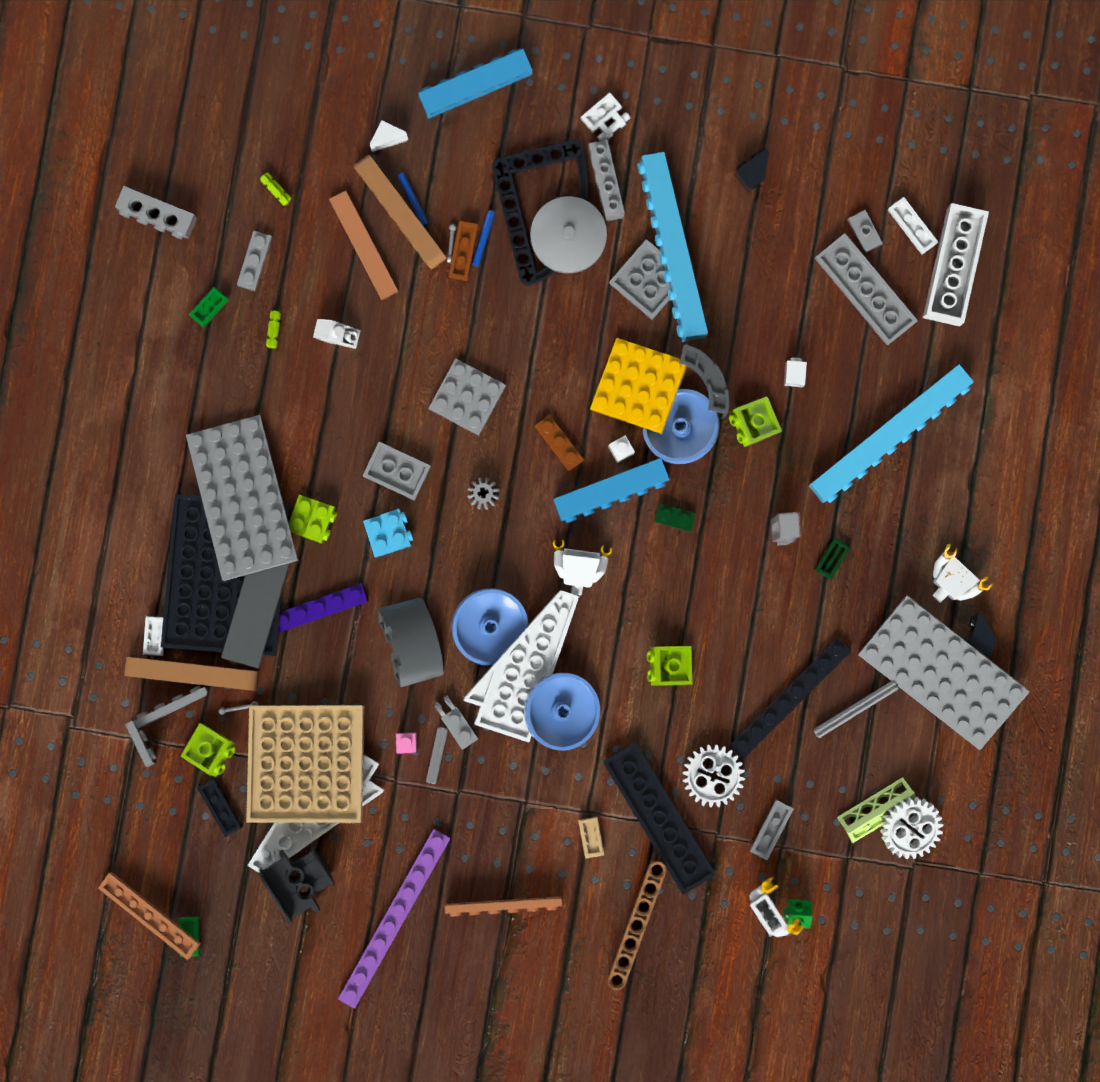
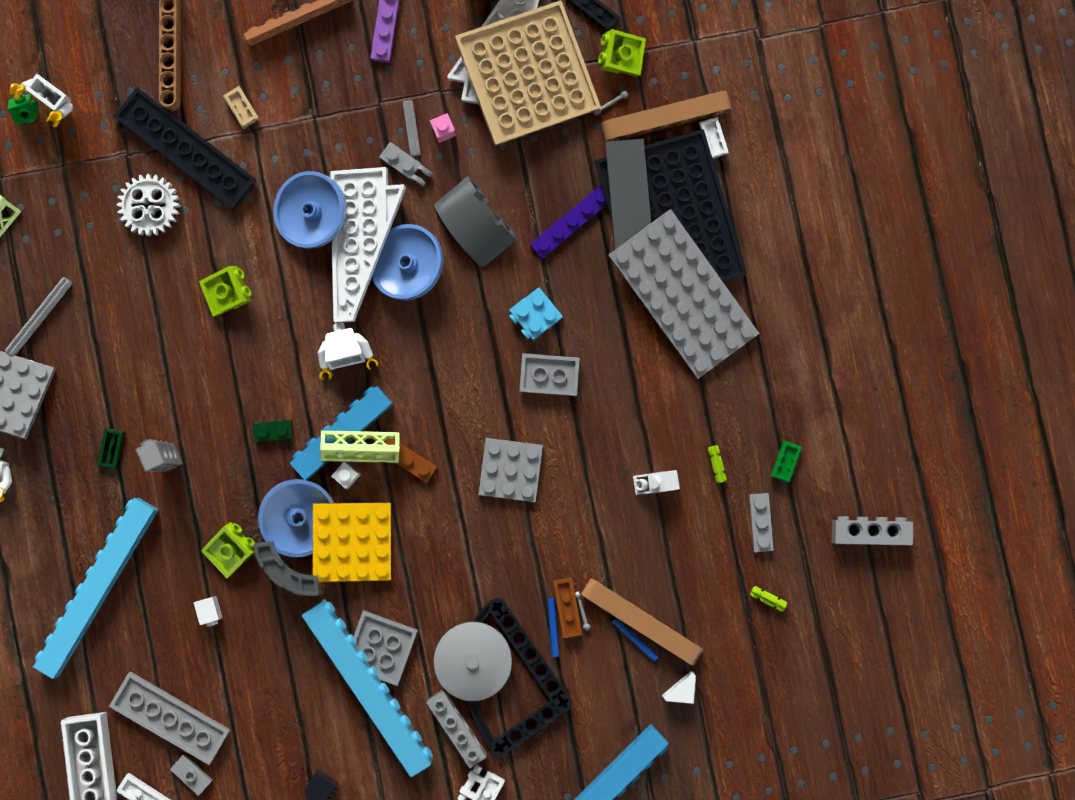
camera: 155 degrees right, 0 degrees up
(140, 738) = (689, 40): light grey bracket -> none
(312, 519) = (610, 300): lime plate -> none
(363, 245) = (664, 576): nougat tile -> none
(477, 490) = (453, 383): light grey gear -> none
(601, 464) = (359, 450): none -> yellowish green fence
(771, 829) = (77, 176): light grey plate -> none
(789, 698) = (103, 304): black plate -> none

